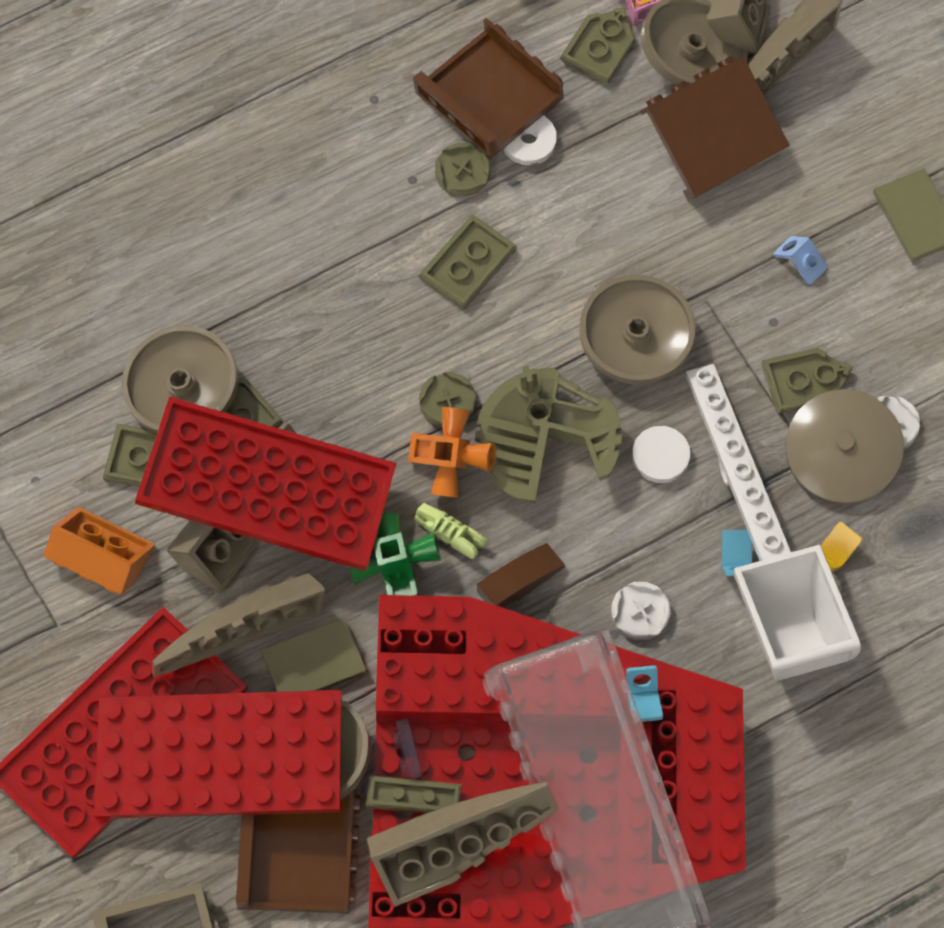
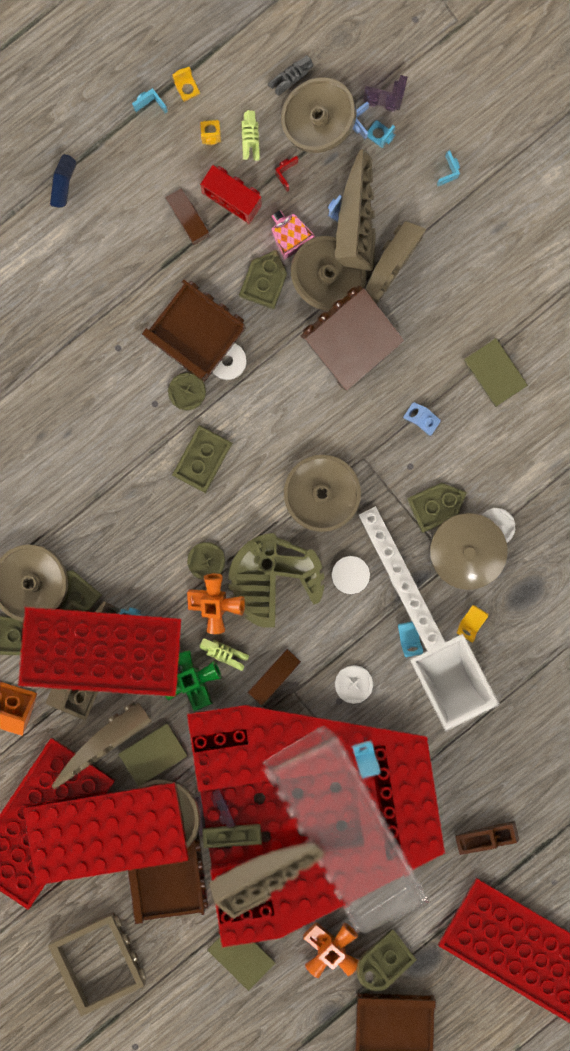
camera: 10 degrees left, 20 degrees up
(816, 872) = (487, 838): none -> reddish brown slope

